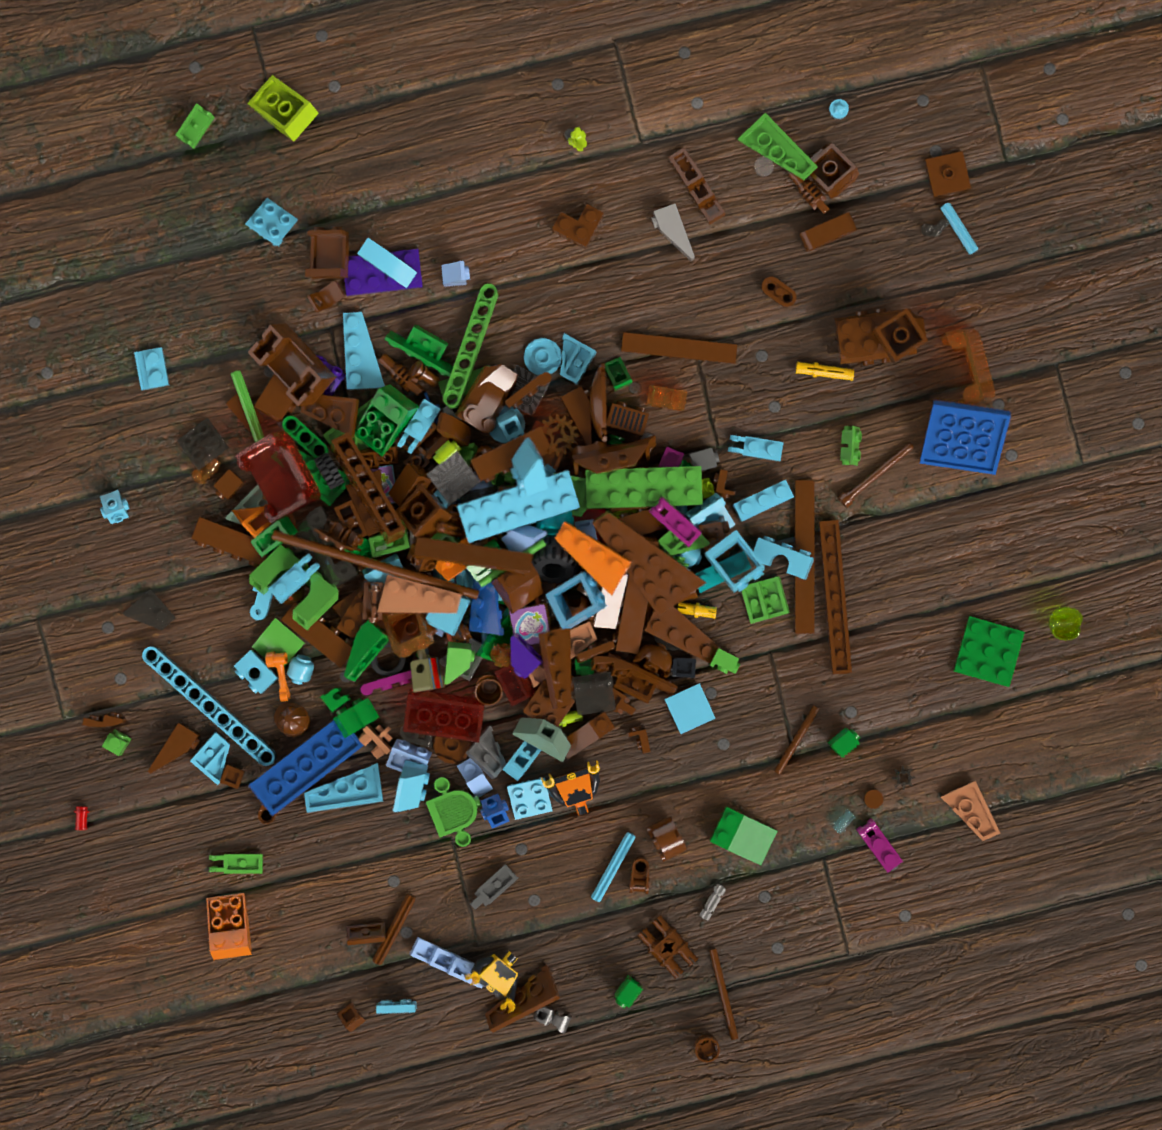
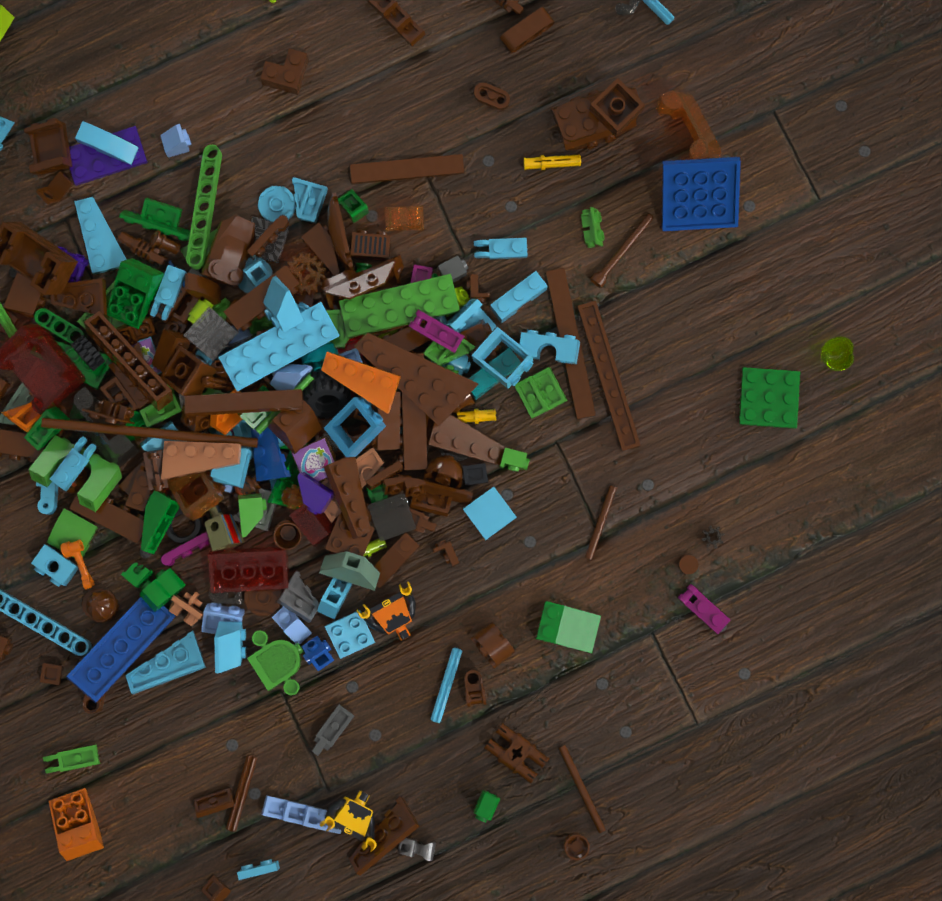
camera: 10 degrees left, 5 degrees down
(212, 757) = (28, 659): medium azure wing -> none
(300, 669) = (98, 554): medium azure head -> none
(671, 226) = (376, 56): light grey slope -> none
(712, 902) = (551, 699): light grey axle -> none
(842, 823) = (663, 593): clear light blue pin -> none
(844, 742) = (648, 513): green brick -> none
(973, 810) = (788, 554): nougat wing -> none

